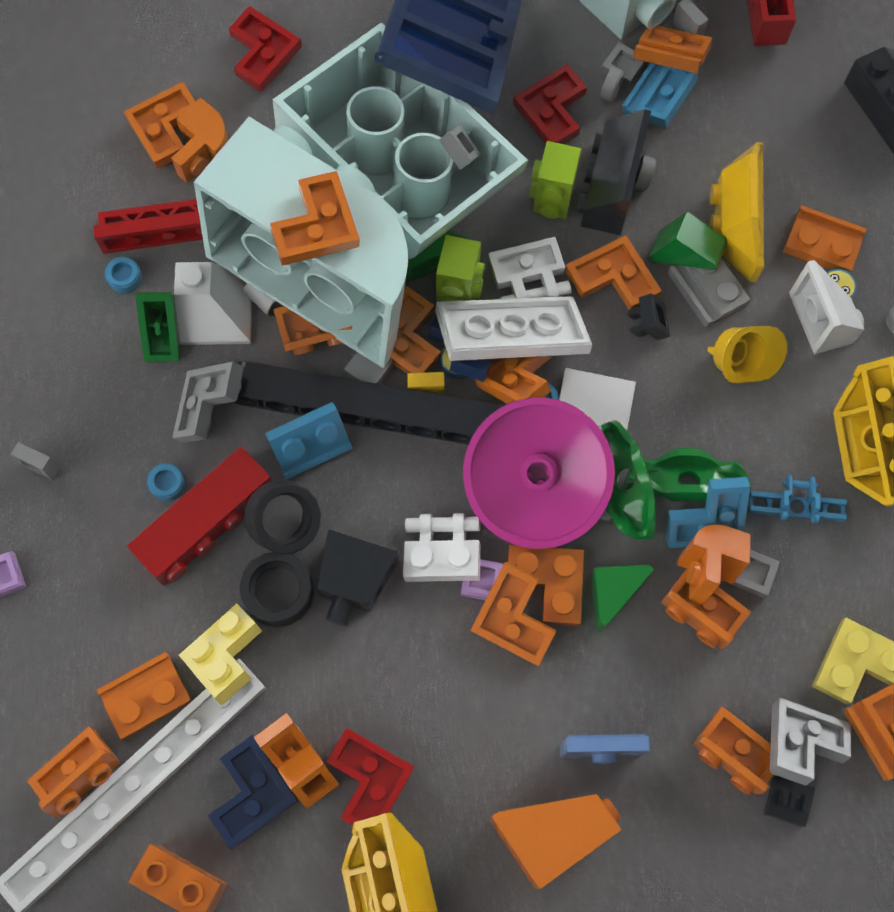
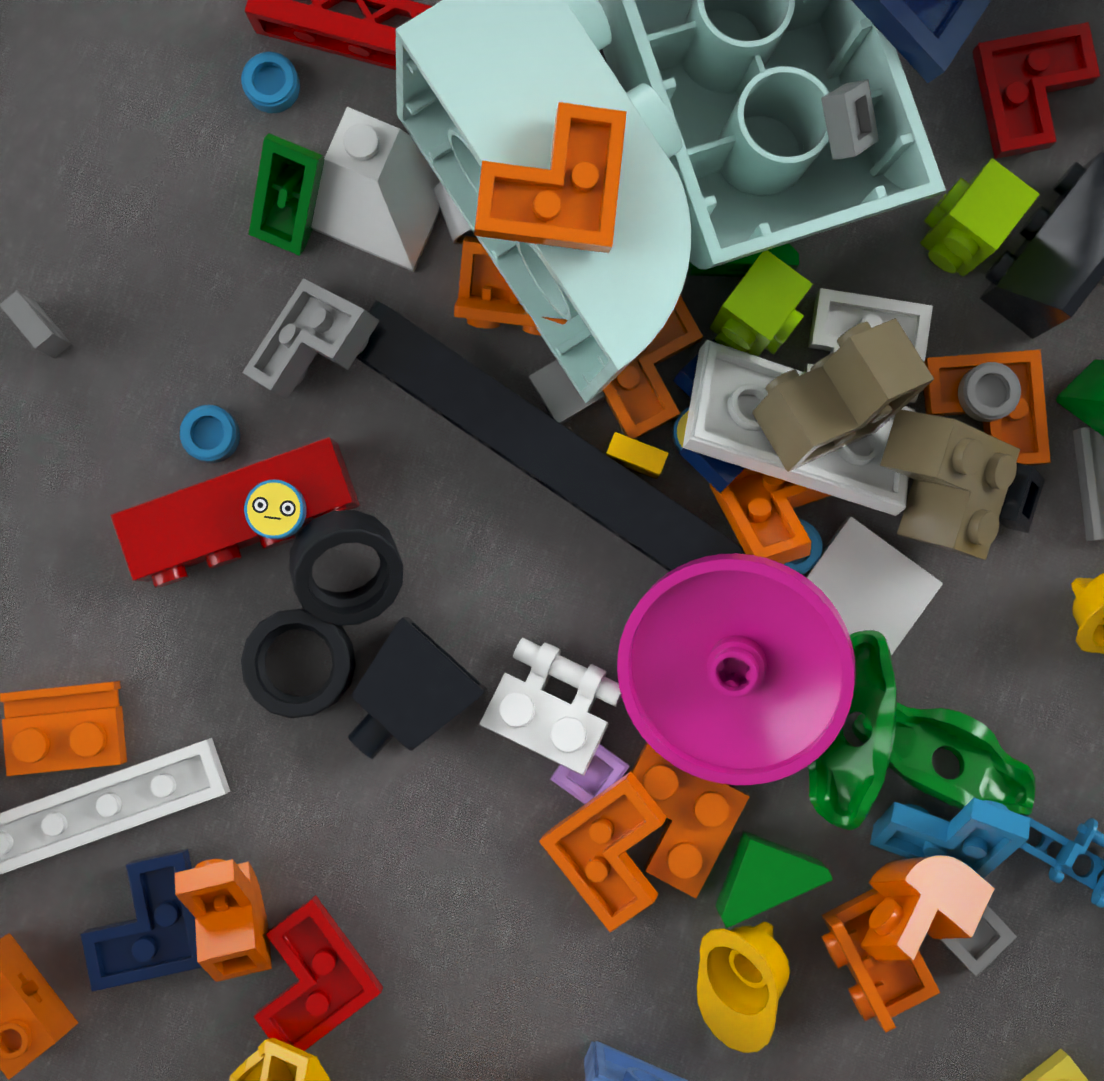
camera: 25 degrees right, 15 degrees up
(213, 653) = (173, 716): light yellow plate -> none
(226, 497) = (275, 509): none -> light yellow tile
(309, 440) = (431, 467): dark azure plate -> none
(528, 295) = (842, 394): none -> dark tan brick
(608, 267) = (989, 392): none -> light grey tile
(614, 318) = (956, 481): none -> dark tan brick
(631, 661) = (741, 984): none -> yellow piece

